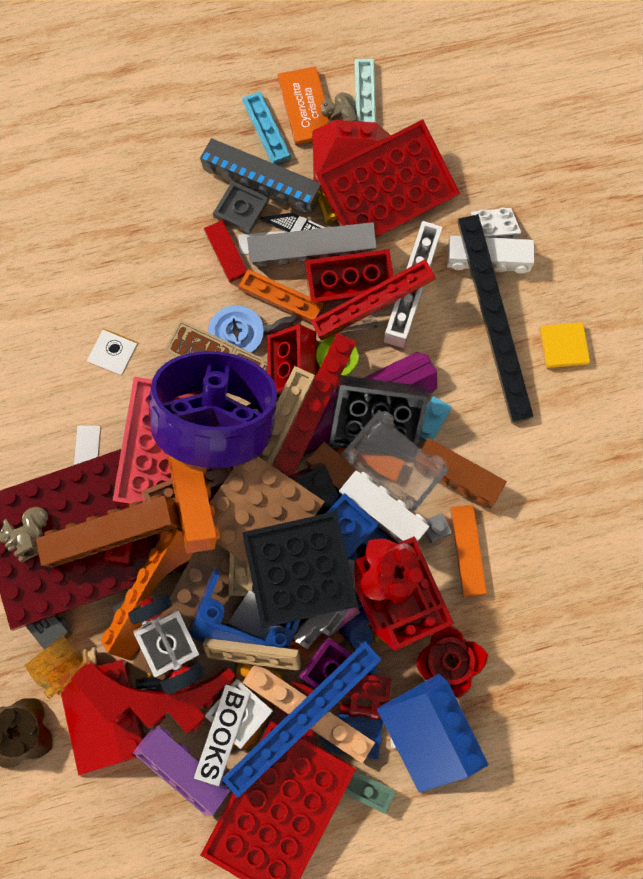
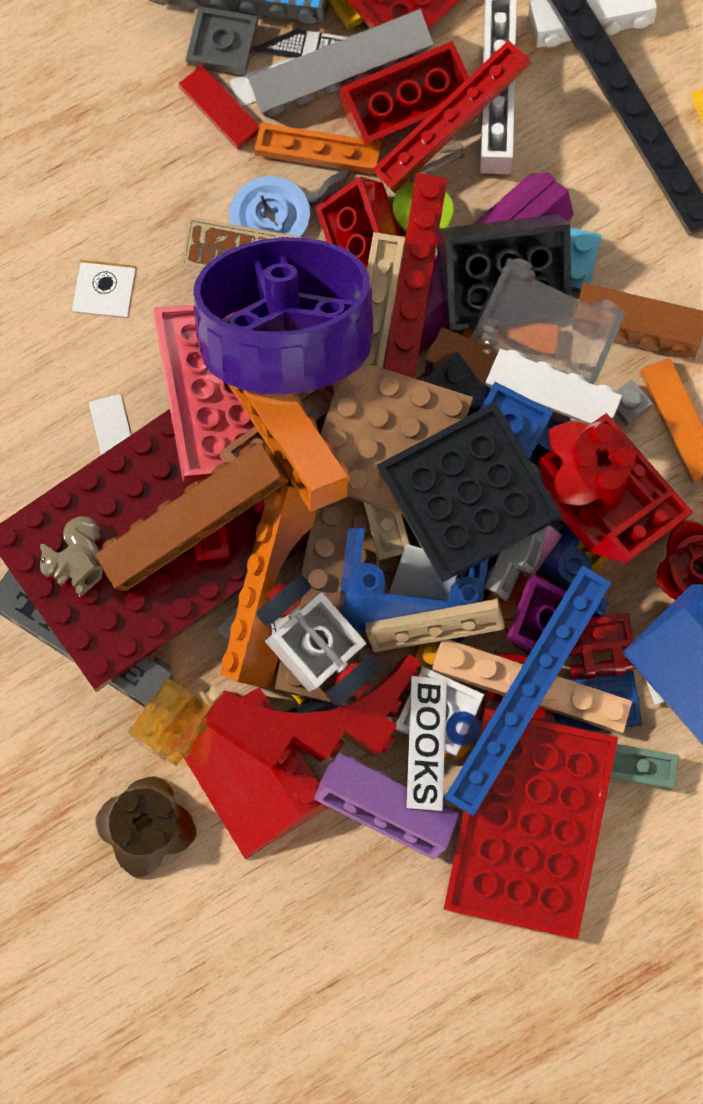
camera: 10 degrees left, 0 degrees up
(257, 732) = (468, 719): none -> clear blue plate

